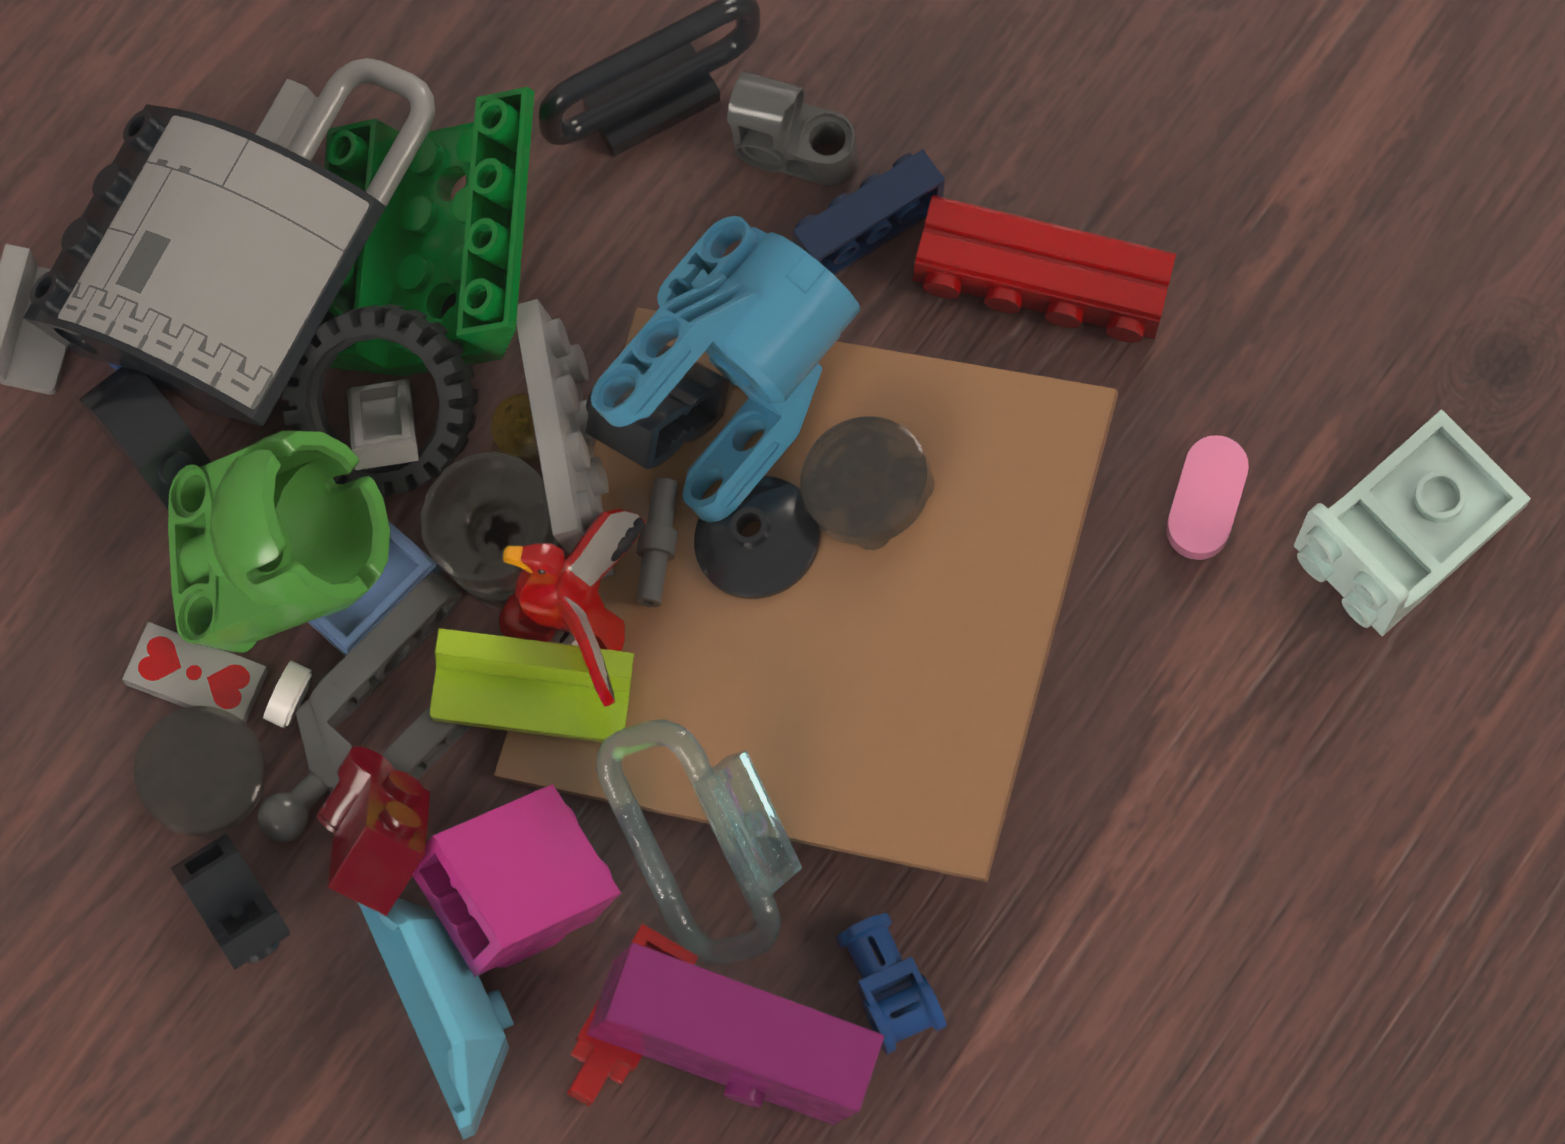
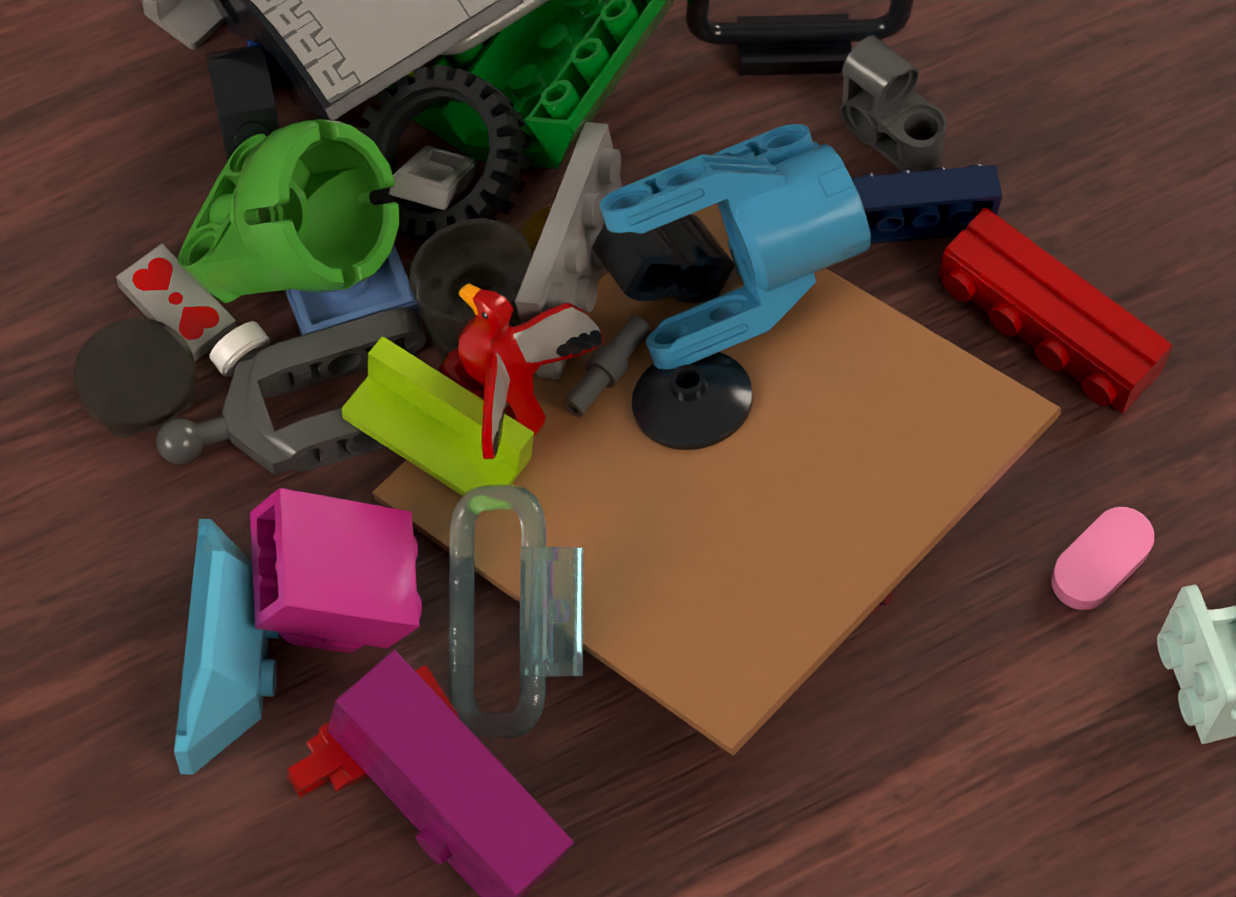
camera: 25 degrees right, 10 degrees down
(231, 902) = (97, 486): black brick -> none
(376, 827) = (240, 471): dark red hinge -> none
(866, 481) = (805, 388): clear smoke tile -> none
(892, 995) = (611, 827): blue connector -> none

